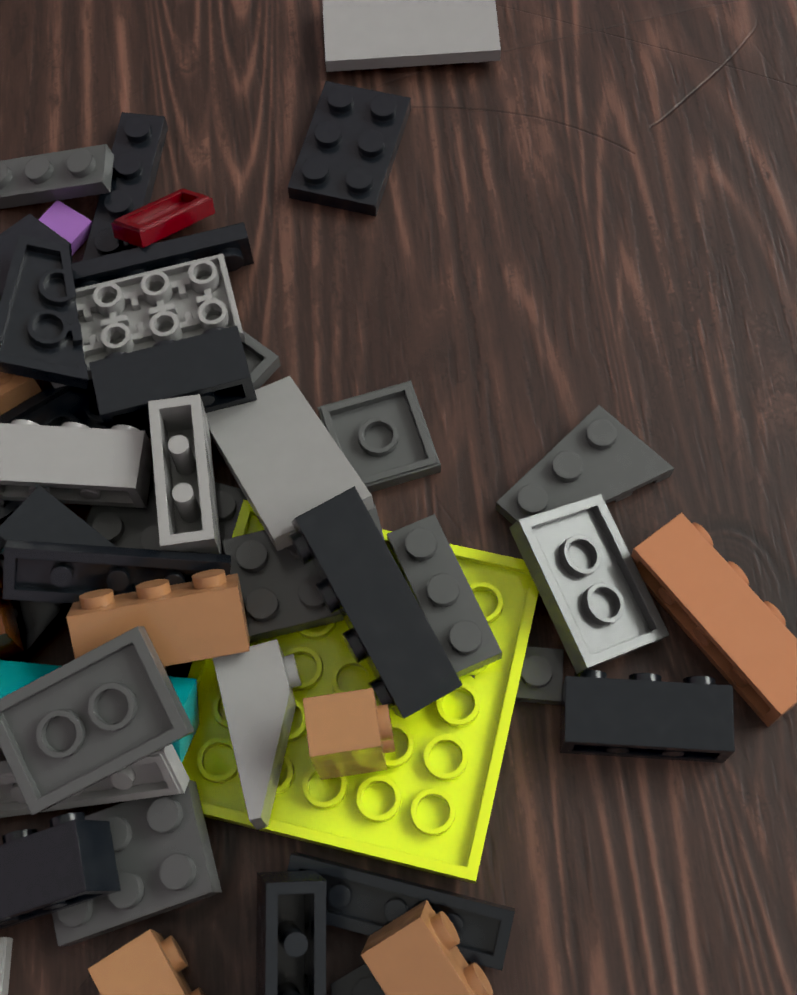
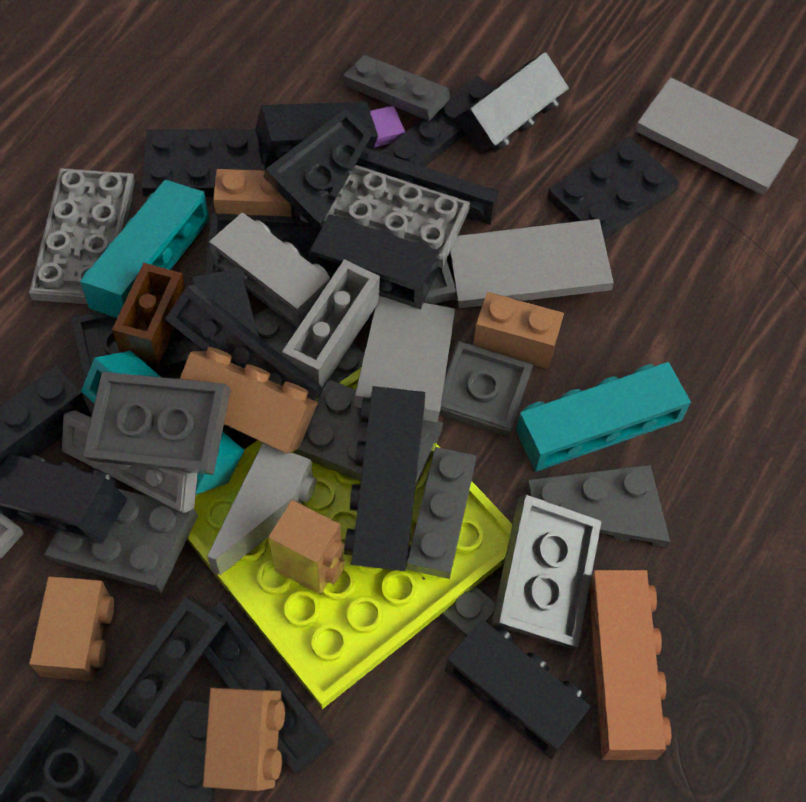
camera: 30 degrees right, 5 degrees down
(162, 217) = (450, 157): dark red tile -> none
(184, 120) = (512, 104): none -> brick
(329, 278) = (531, 263): none -> light grey tile
(372, 354) = (518, 329): none -> medium nougat brick
(516, 387) = (601, 415): none -> teal brick

